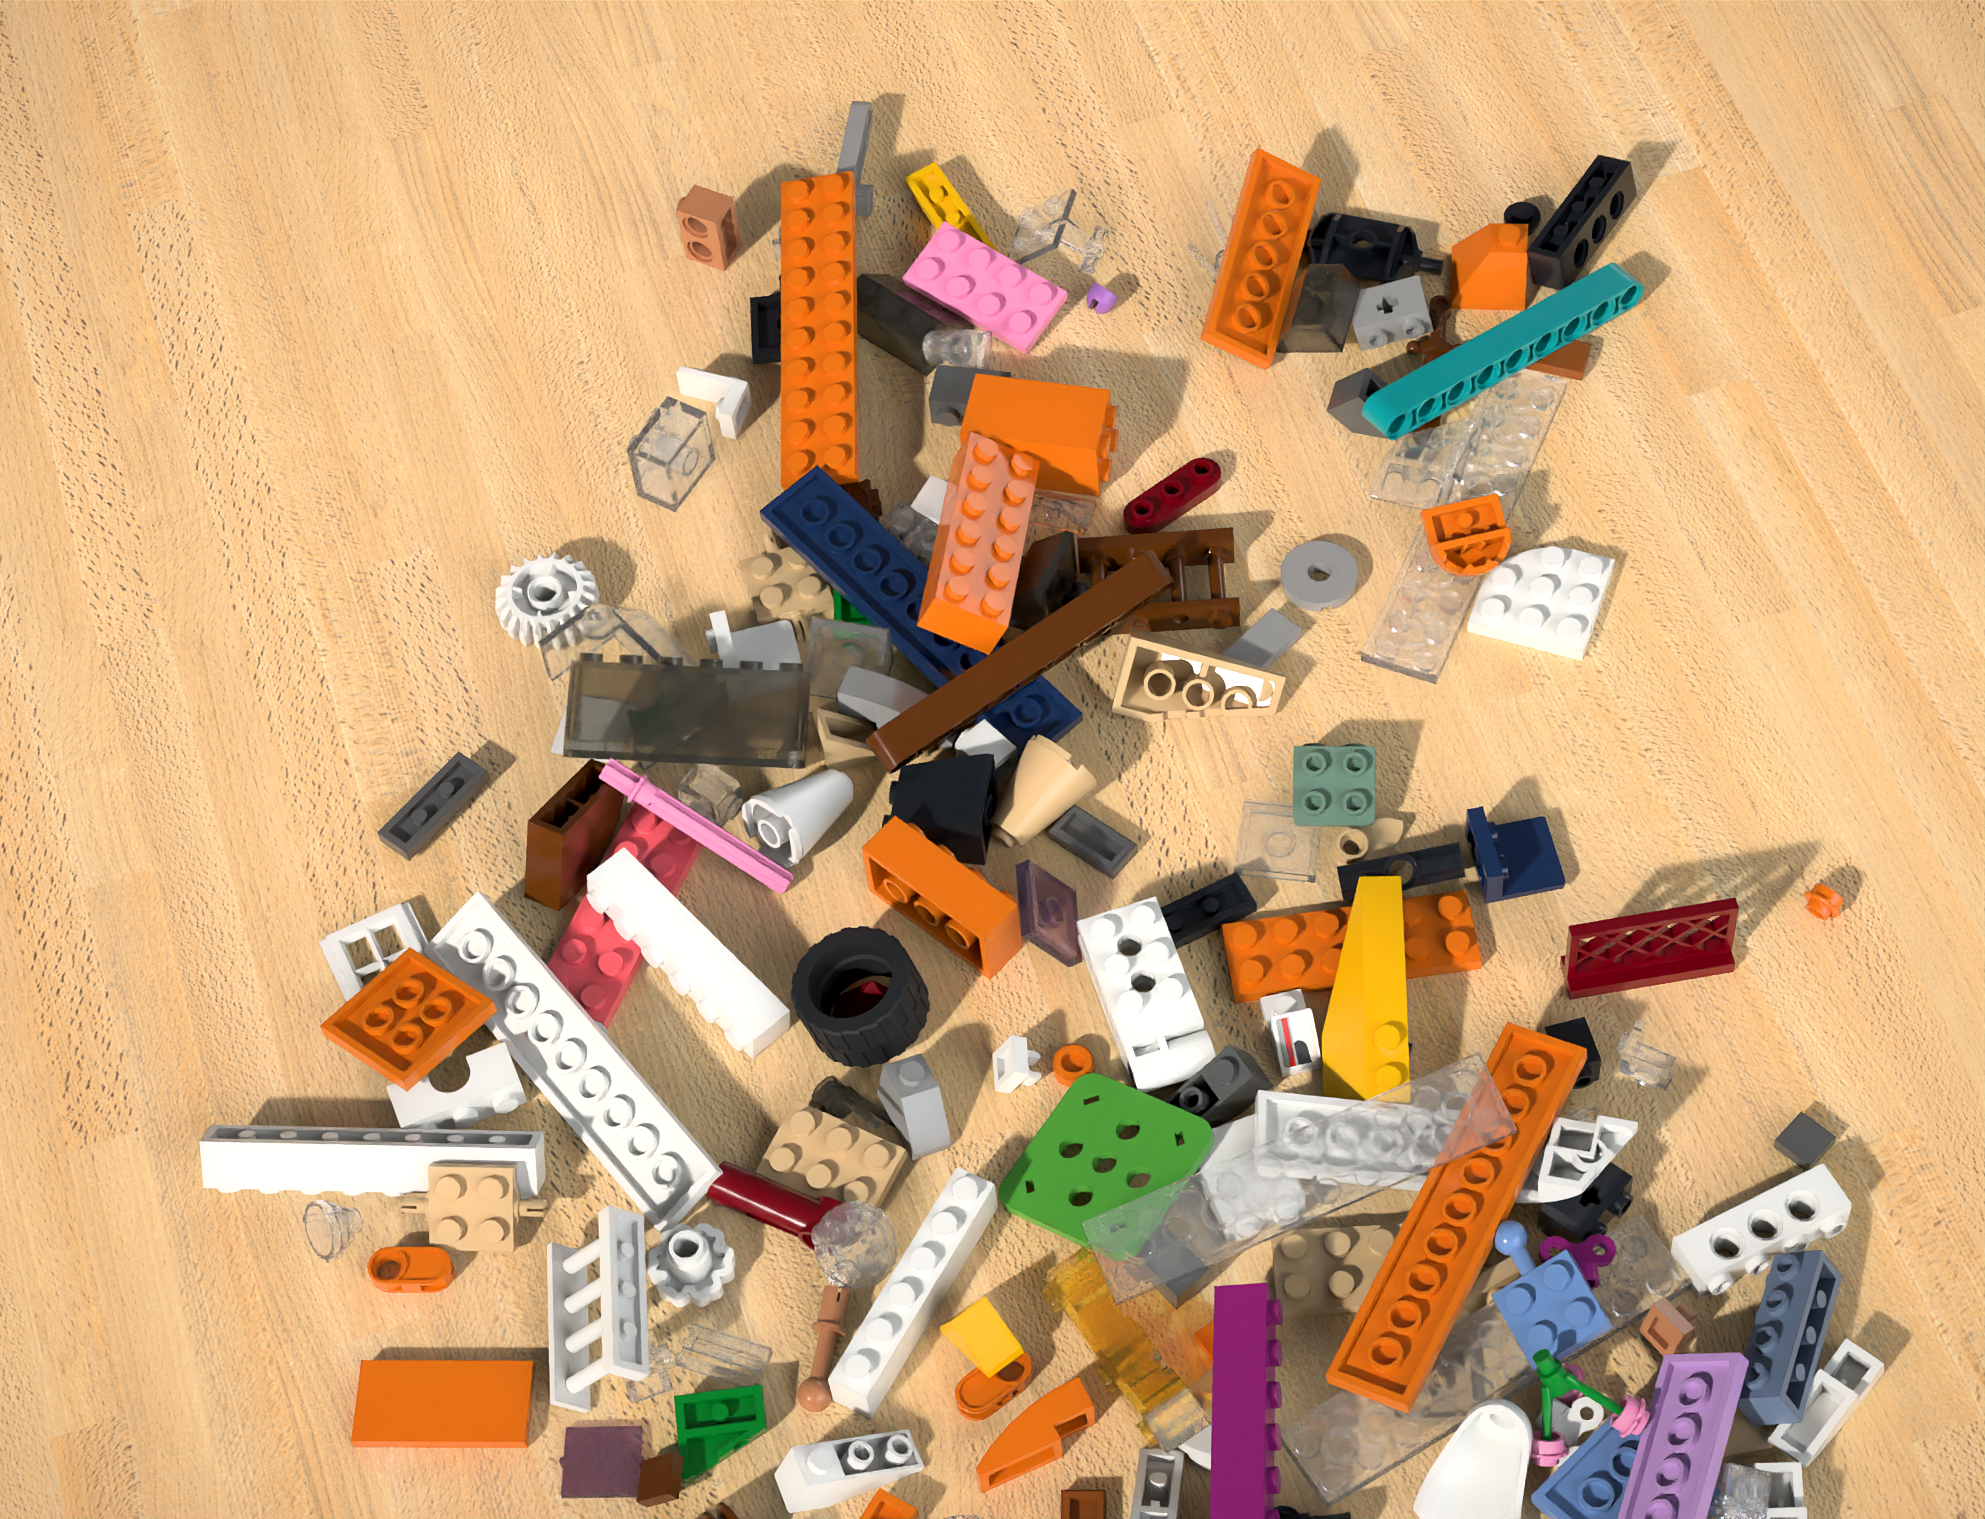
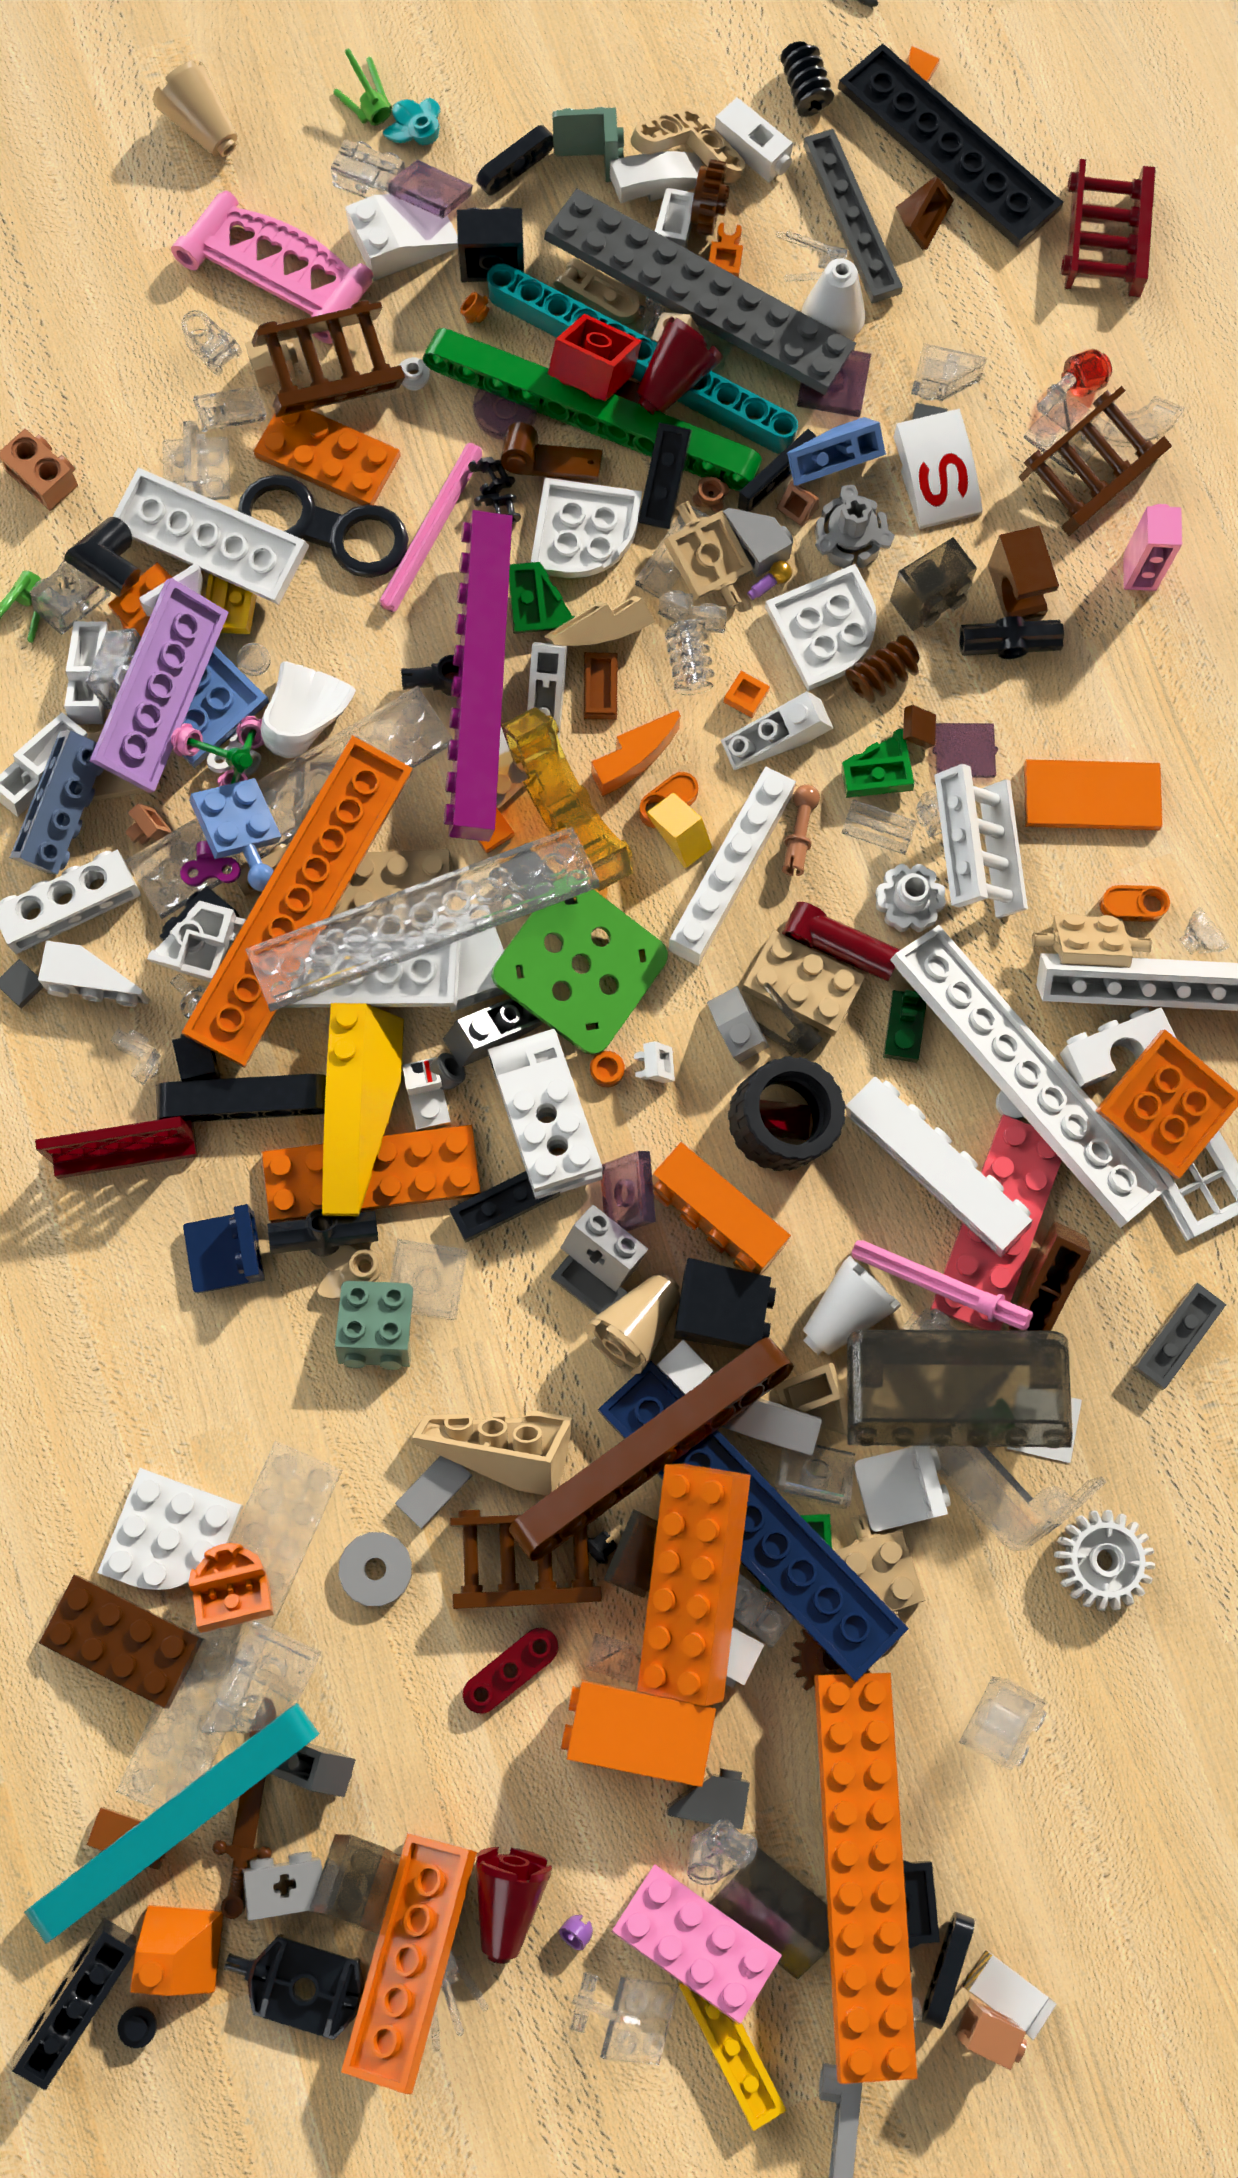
camera: 170 degrees right, 20 degrees up
(683, 273) = (1009, 1994): none -> white sticker
(714, 1116) = (905, 1026): none -> dark green plate
(729, 392) = (948, 1792): white bracket -> none
(743, 281) = (947, 1970): none -> black beam
(855, 1245) = (780, 898): clear tile -> none
(1075, 862) = (604, 1248): none -> light grey brick
(1166, 317) = (508, 1899): none -> dark red cone
(1266, 1047) = (449, 1071): none -> dark grey piece
(1481, 1014) = (242, 1098): none -> black beam
(1580, 500) = (121, 1641): none -> reddish brown plate
(1722, 1146) = (77, 971): none -> white slope

